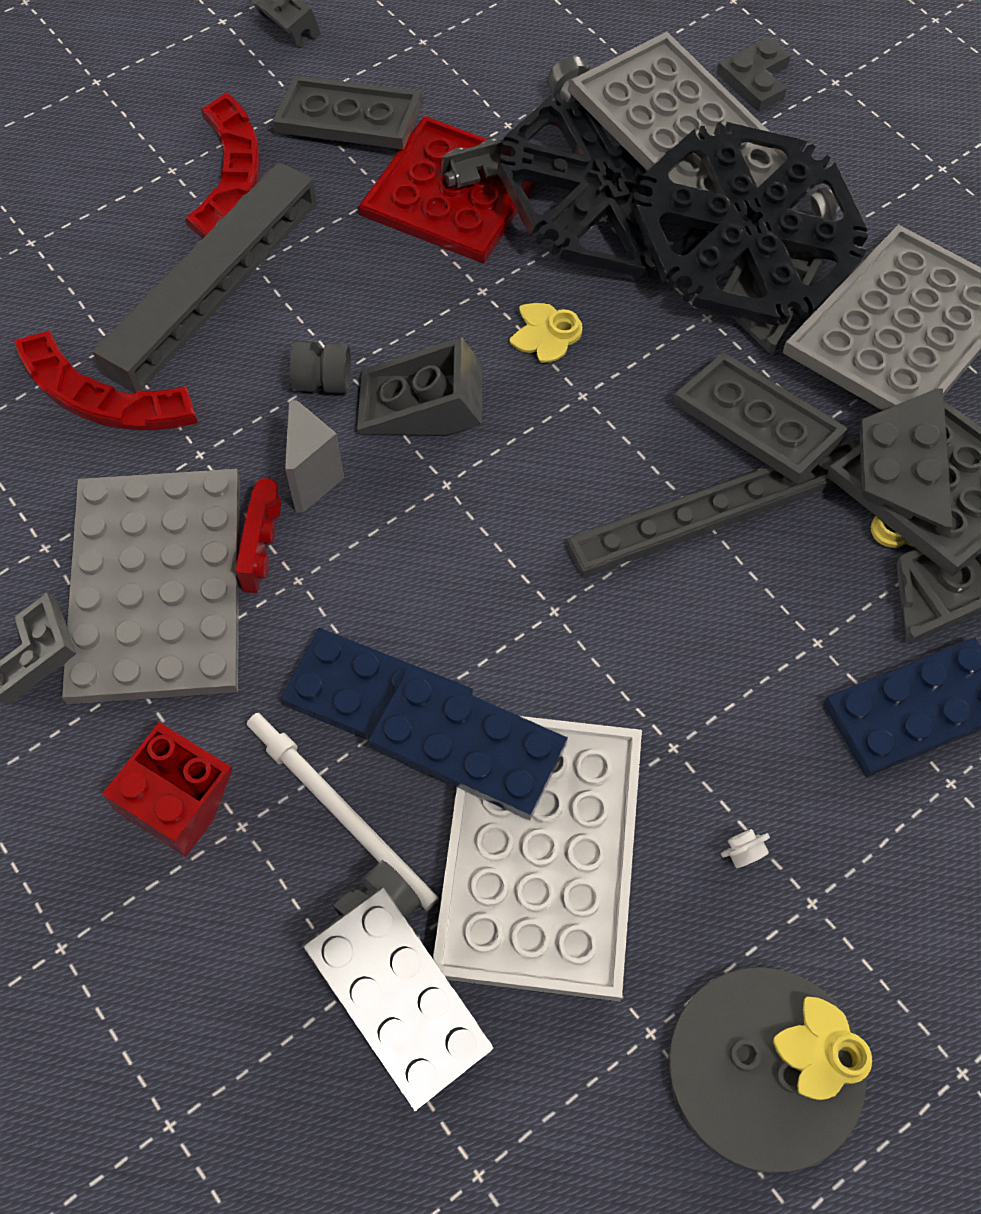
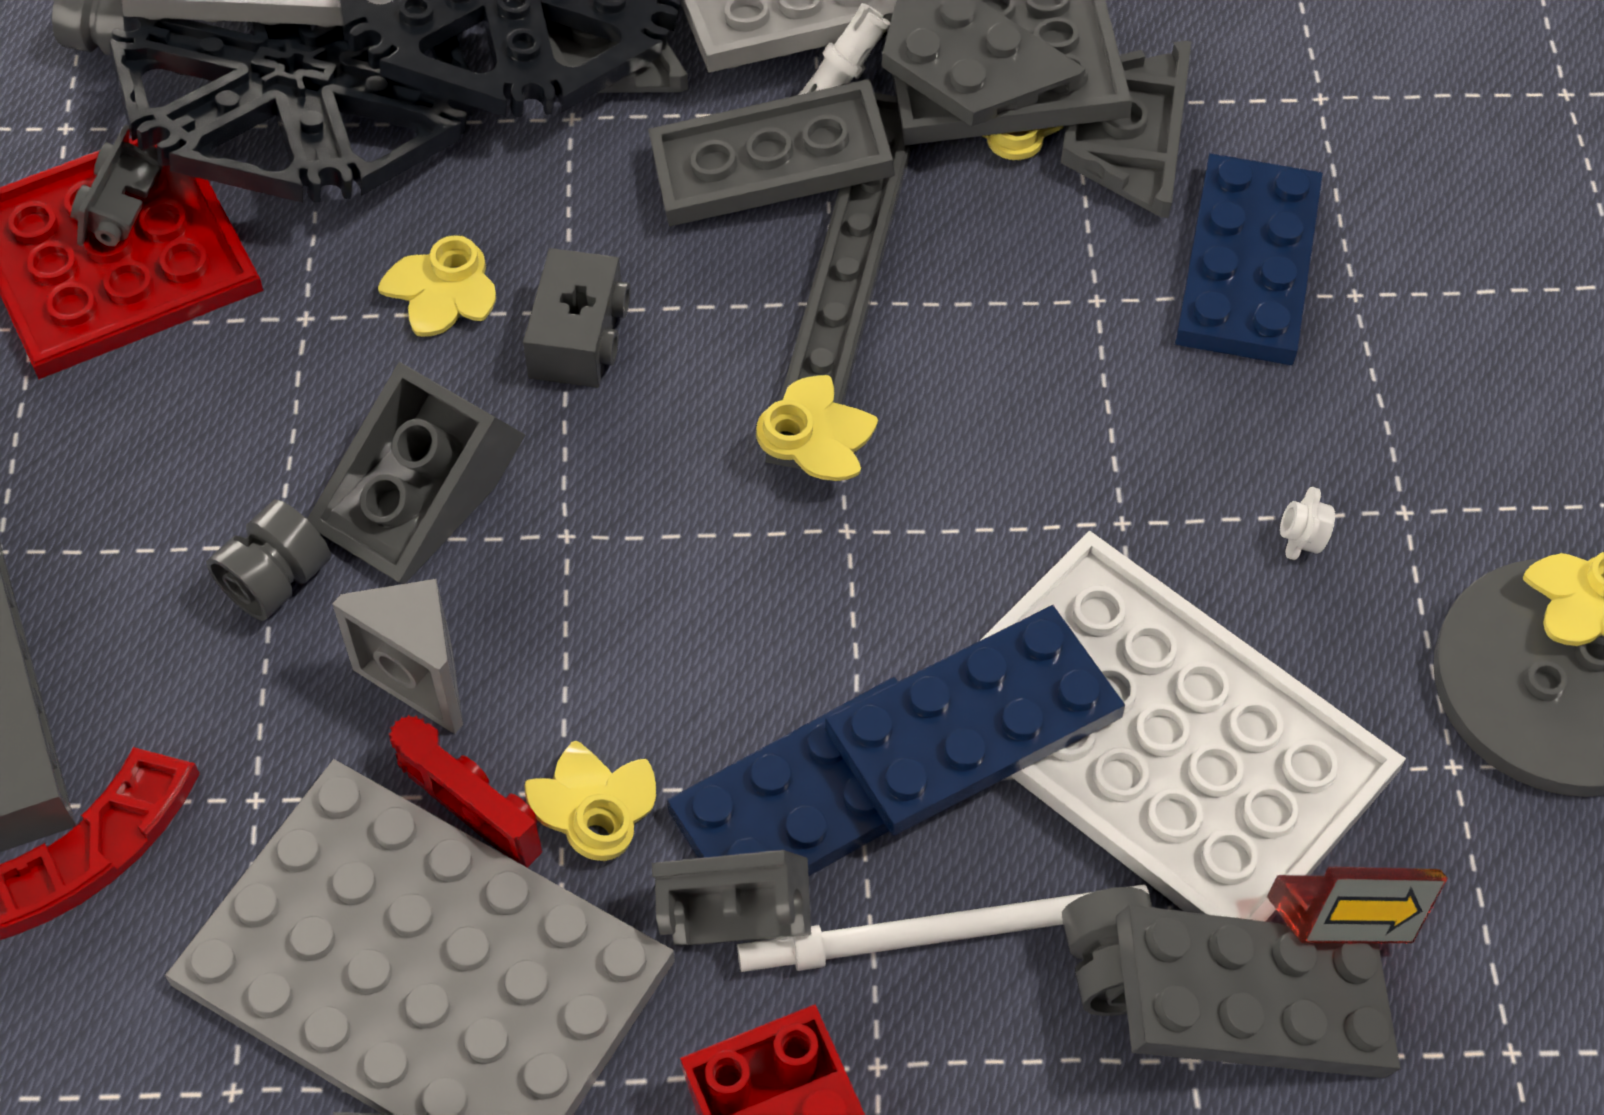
camera: 55 degrees left, 5 degrees down
(275, 691) = (733, 898): none -> dark grey hinge
(299, 591) = (591, 795): none -> light yellow plate
(491, 1020) = (1357, 903): none -> panel
(573, 398) = (575, 318): none -> dark grey brick
(598, 557) = (822, 430): none -> light yellow plate
(854, 407) = (850, 51): none -> white pin

